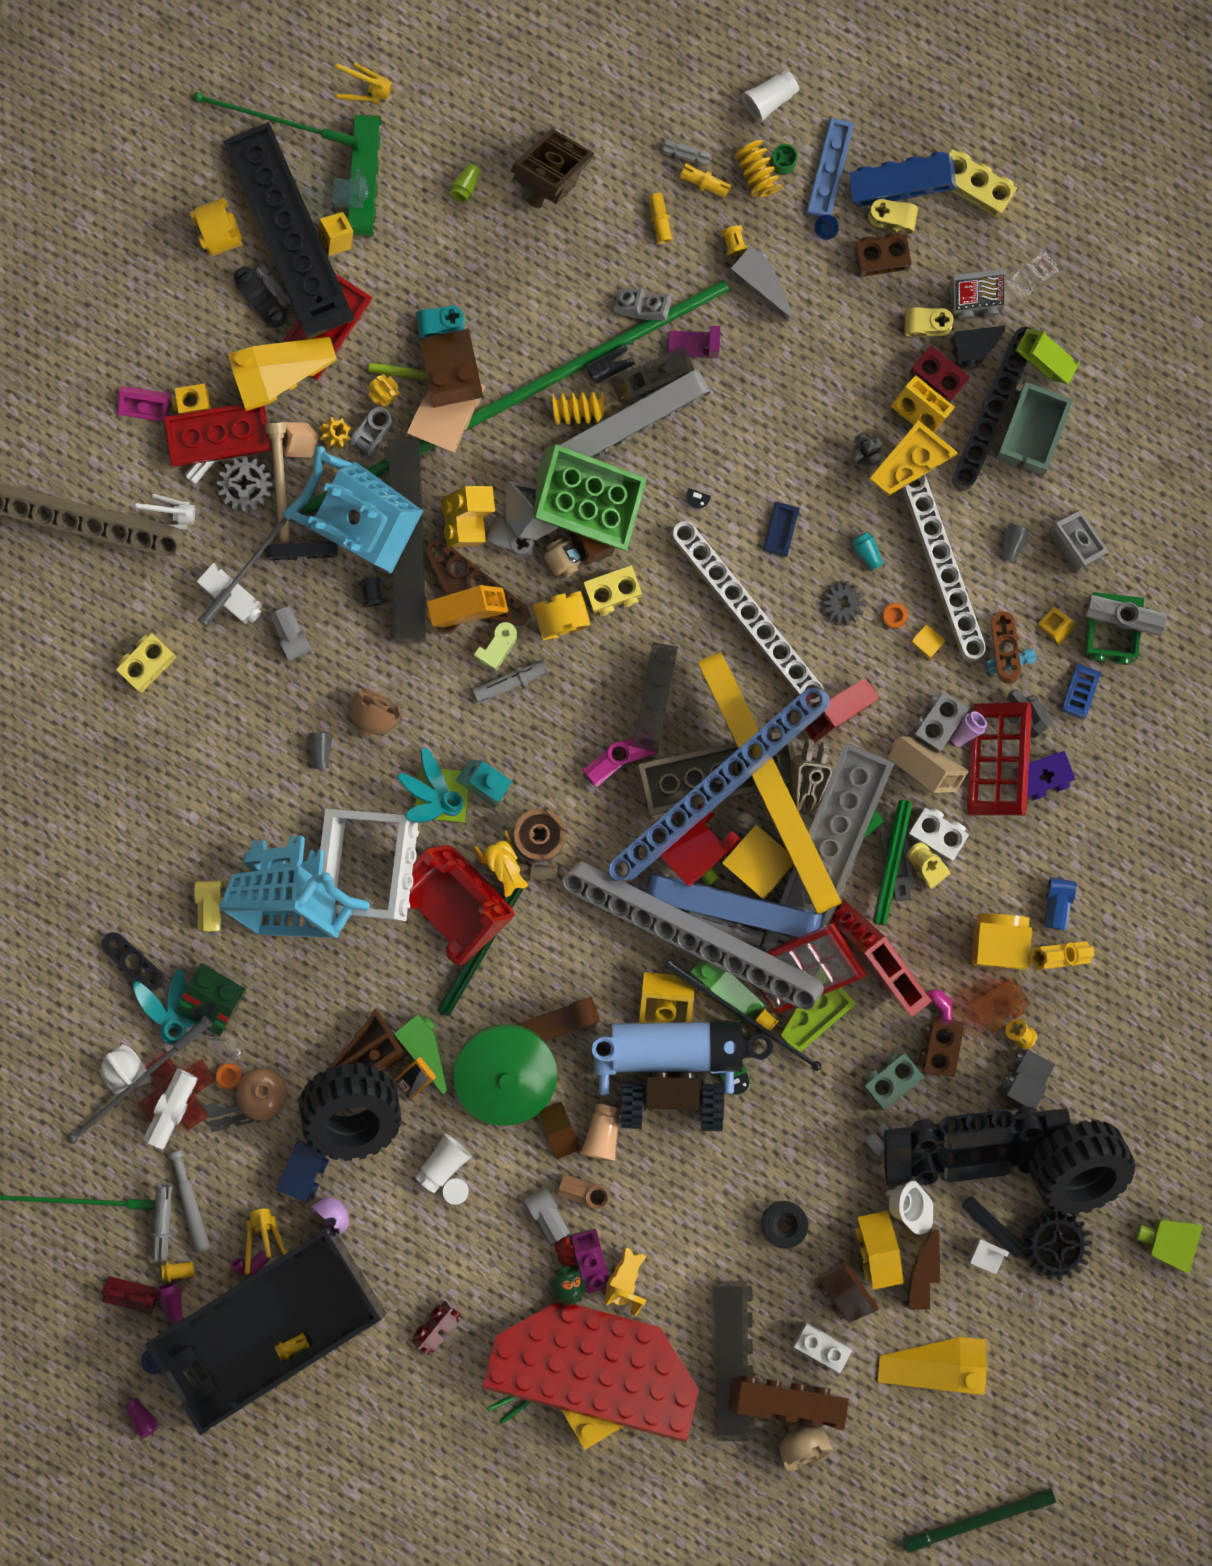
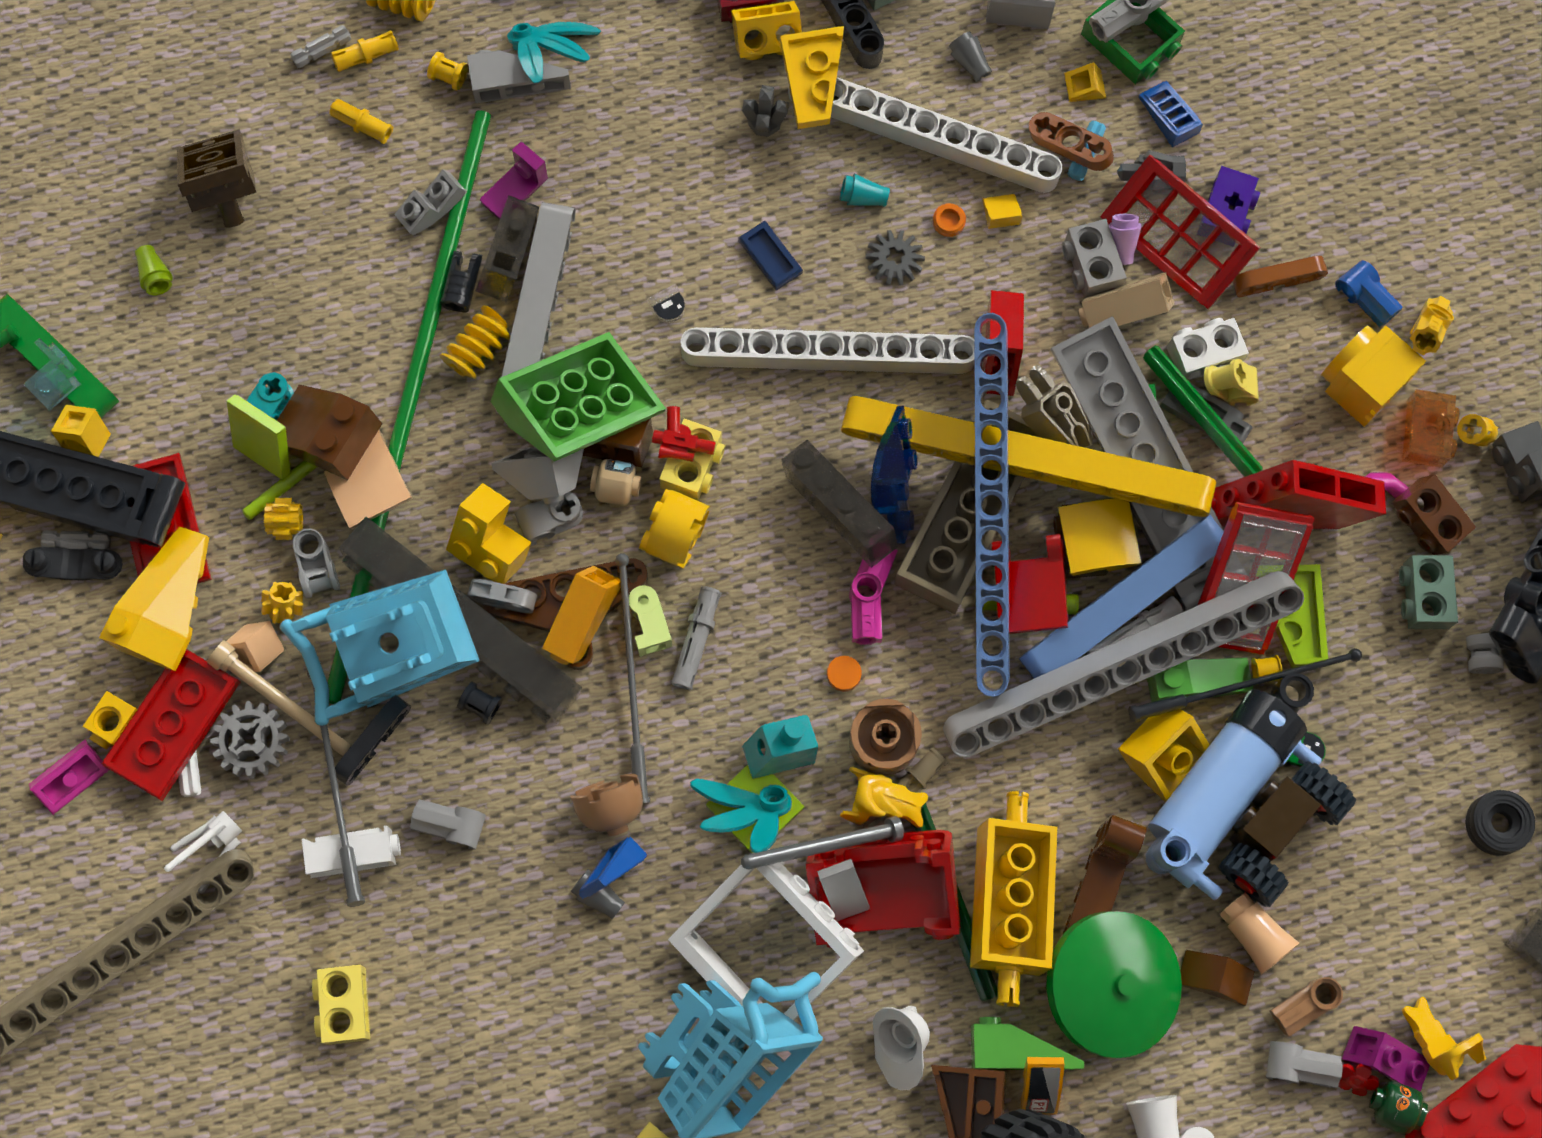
camera: 55 degrees left, 10 degrees down
(343, 744) = (613, 865): none -> blue slope
(375, 983) = (900, 1044): none -> white piece
(415, 336) = (258, 436): none -> lime tile
(419, 702) = (637, 750): none -> dark grey piece
(430, 882) = (843, 890): none -> light grey slope
(440, 552) = (502, 596): none -> light grey piece
(486, 881) = (891, 829): none -> dark grey bar
(506, 980) = (1014, 898): none -> yellow brick
(560, 781) = (844, 673): none -> orange tile
(614, 572) = (678, 441): none -> red piece
(690, 713) = (892, 473): none -> clear blue slope
(797, 270) = (527, 38): none -> teal plant
(1030, 844) = (1286, 273): none -> dark orange beam

